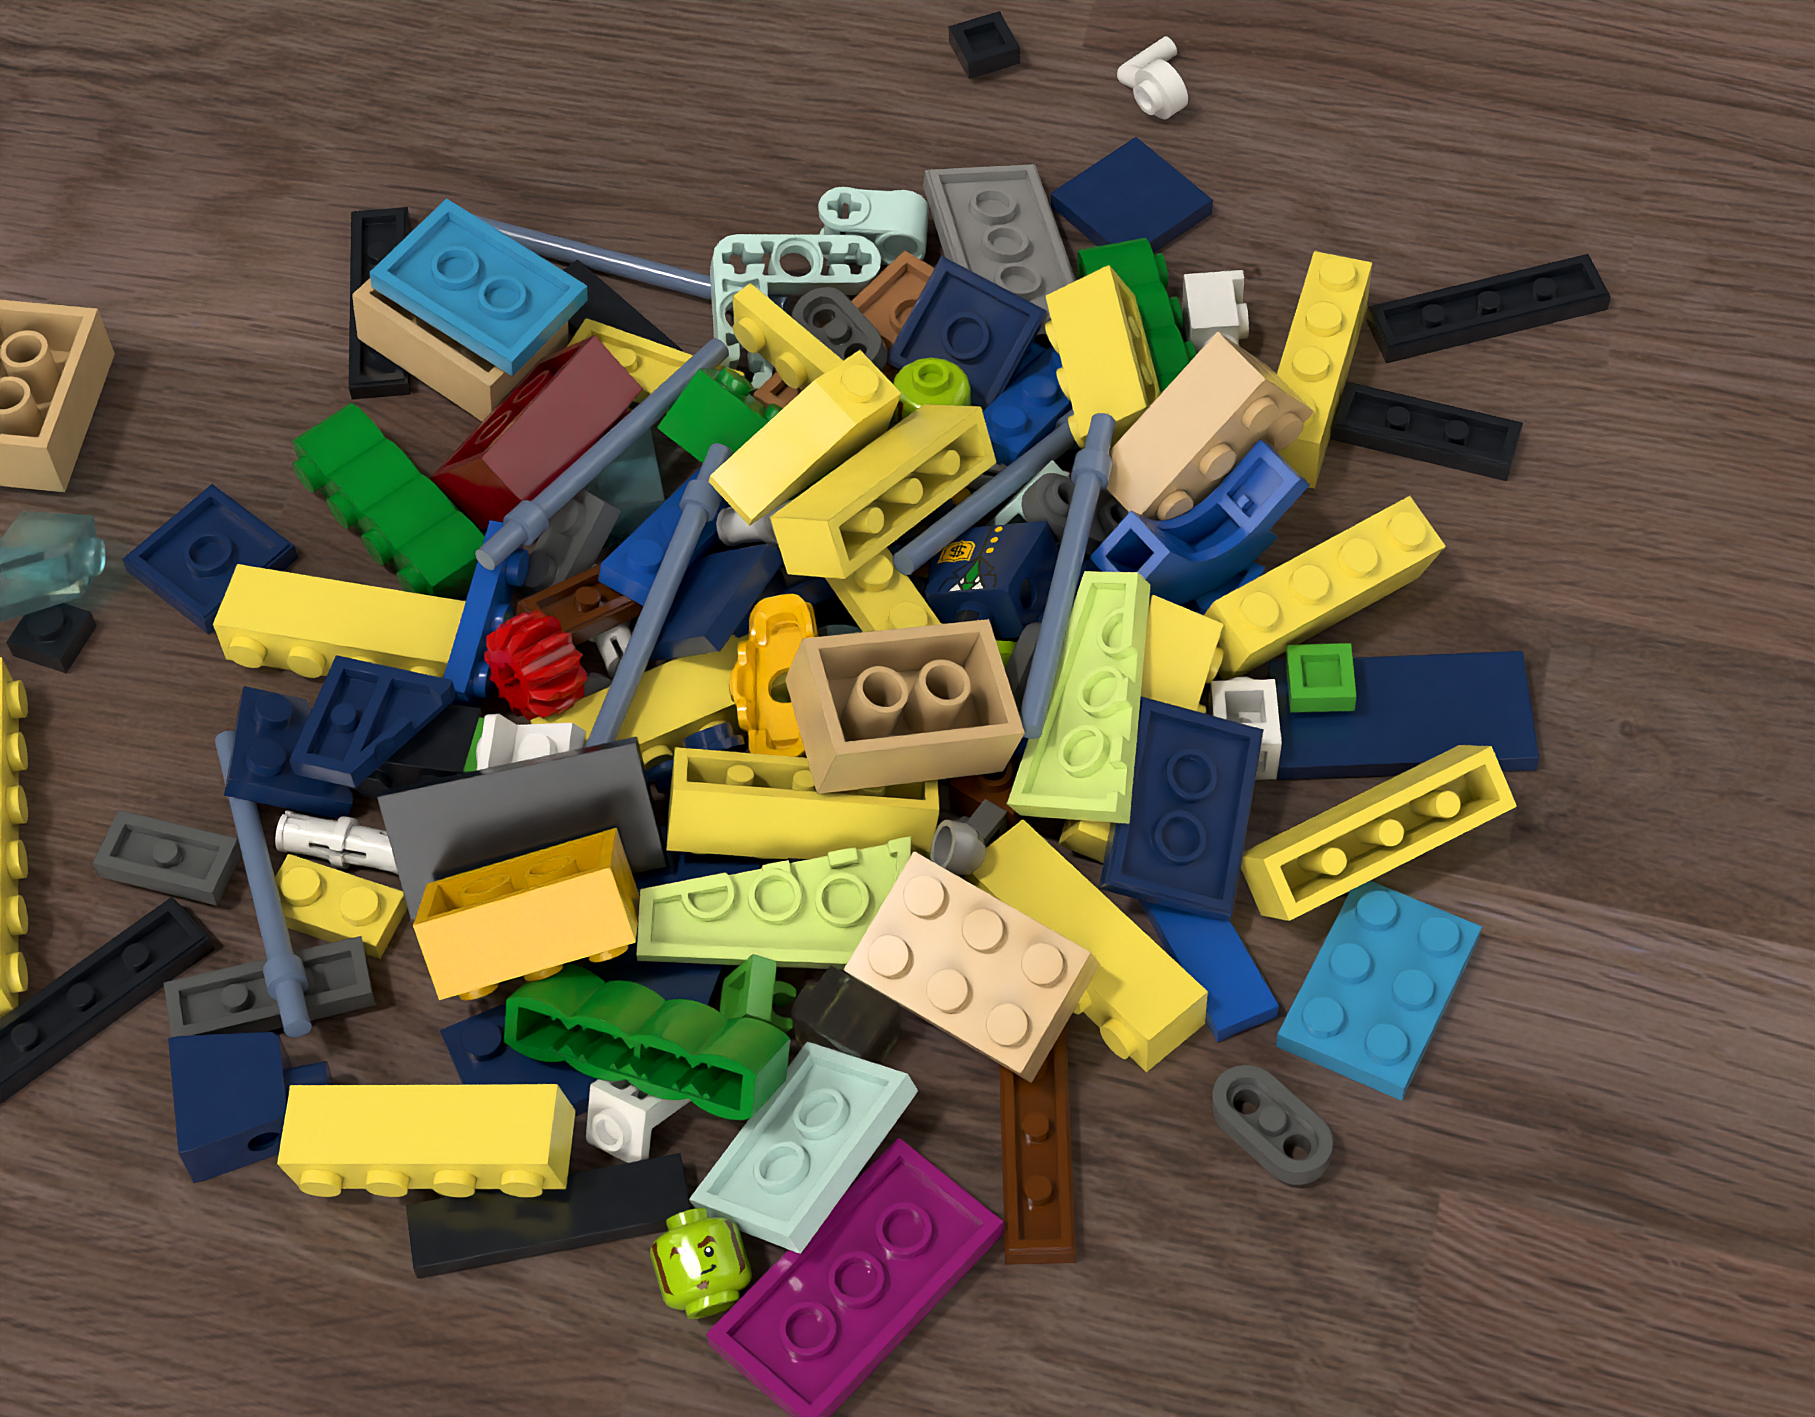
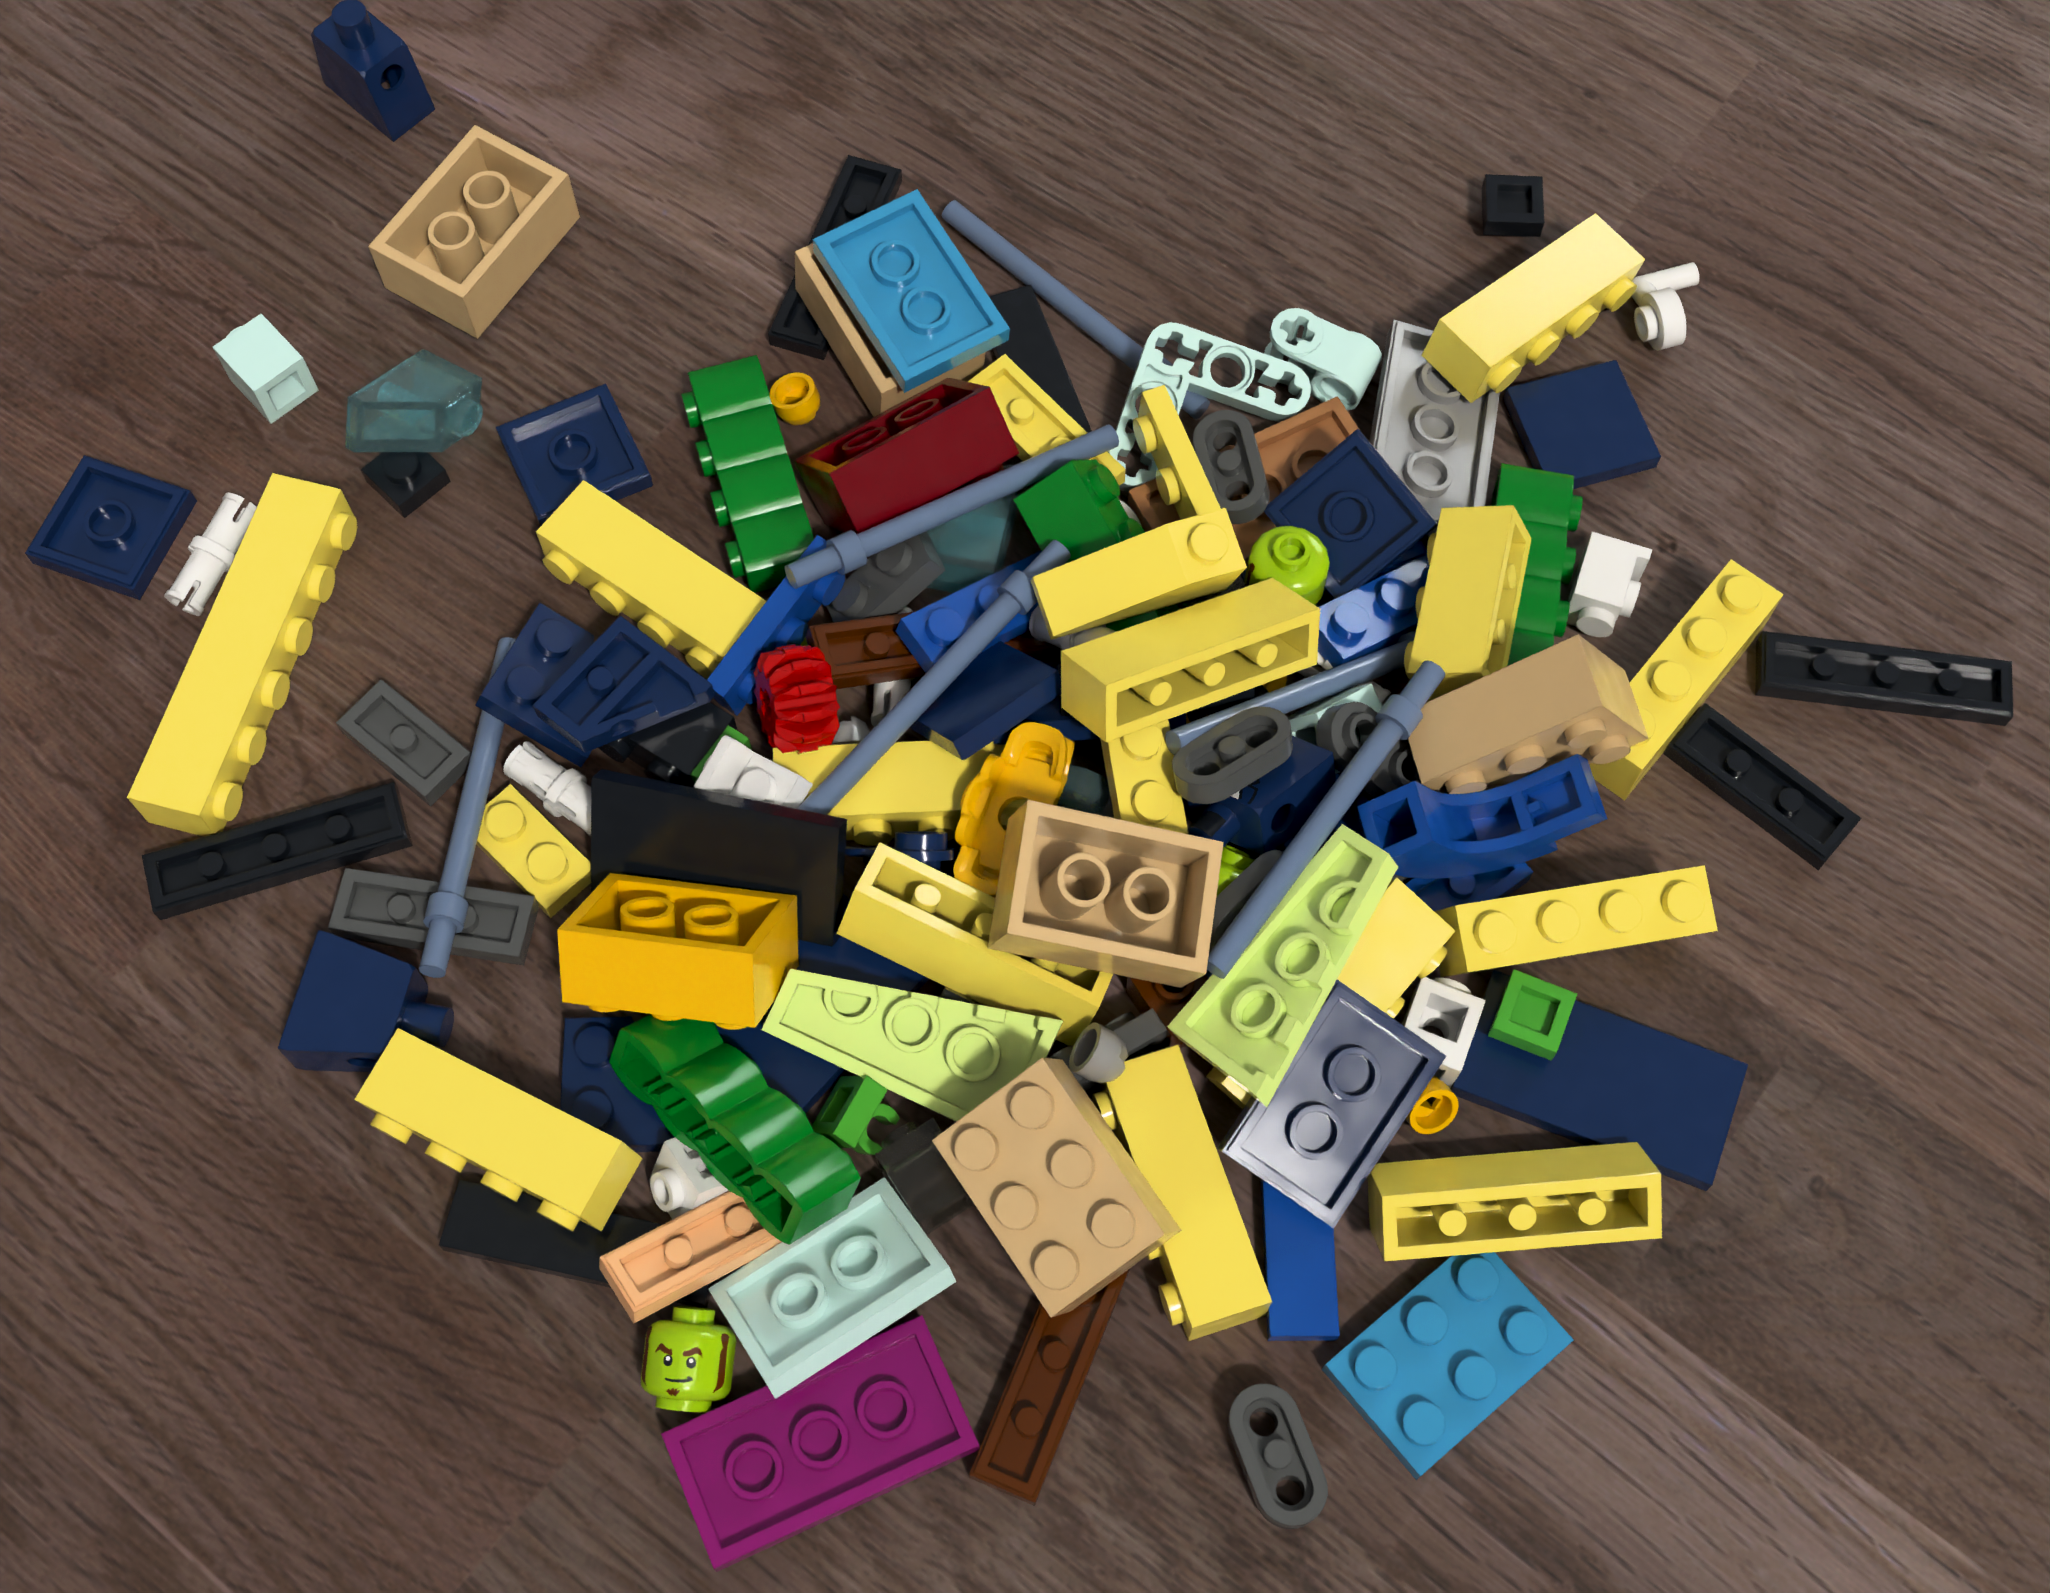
camera: 20 degrees right, 10 degrees up
(404, 428) = (800, 395): none -> yellow hinge
(658, 1171) = (684, 1255): none -> light nougat tile
(960, 553) = (1232, 755): none -> dark grey plate
(1045, 117) = (1533, 309): none -> light yellow brick
(1279, 791) = (1434, 1117): none -> yellow hinge

